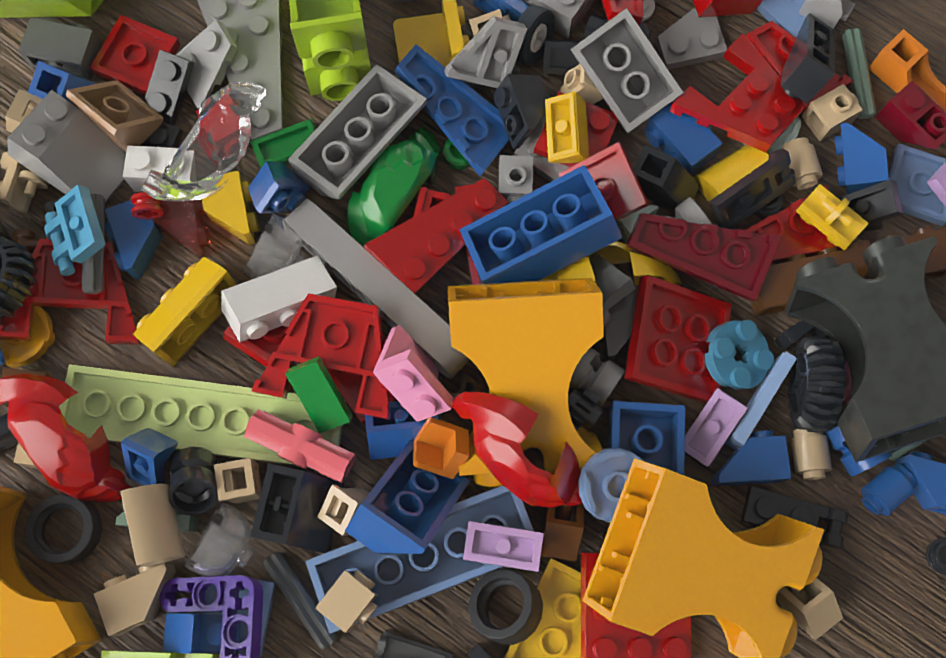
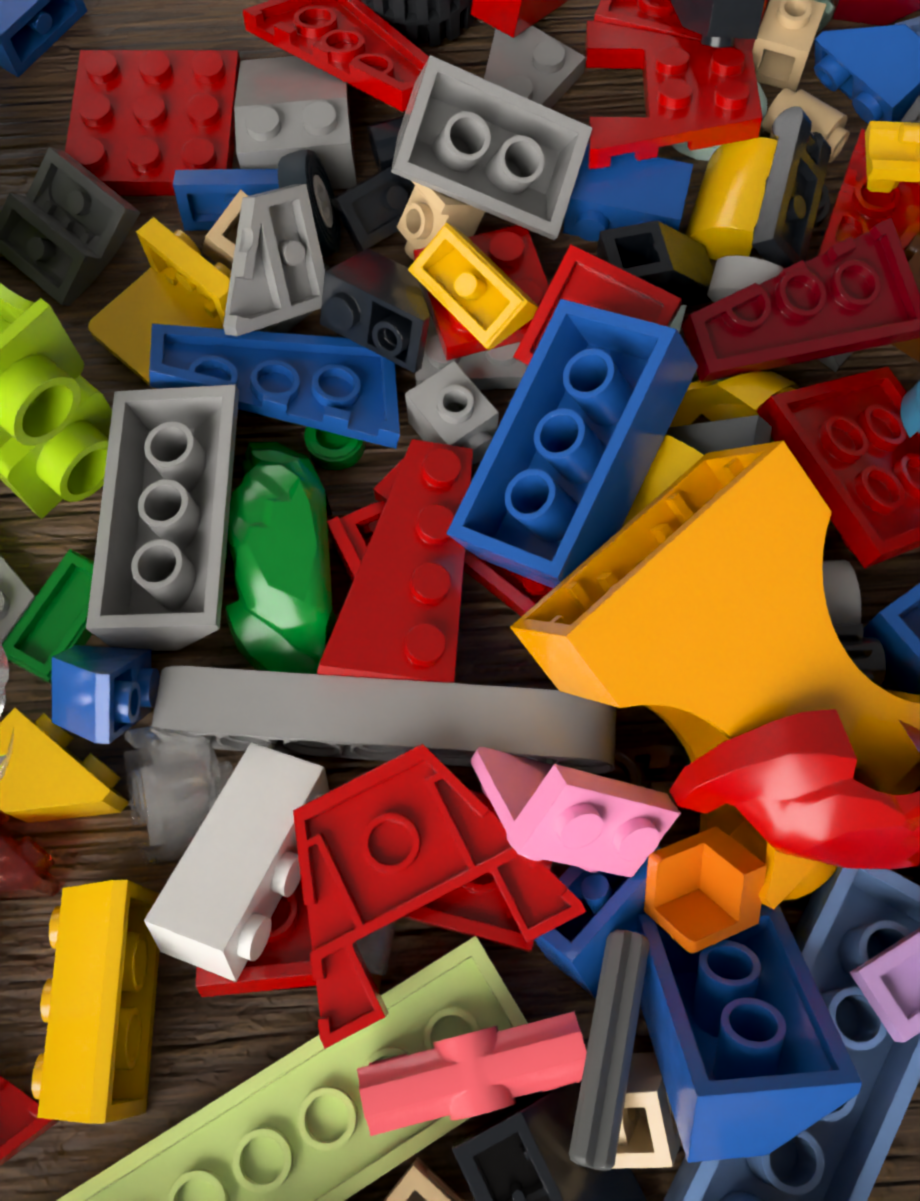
camera: 35 degrees left, 5 degrees down
(319, 395) = (440, 962): green tile -> none
(354, 474) = (609, 1051): none -> dark grey axle

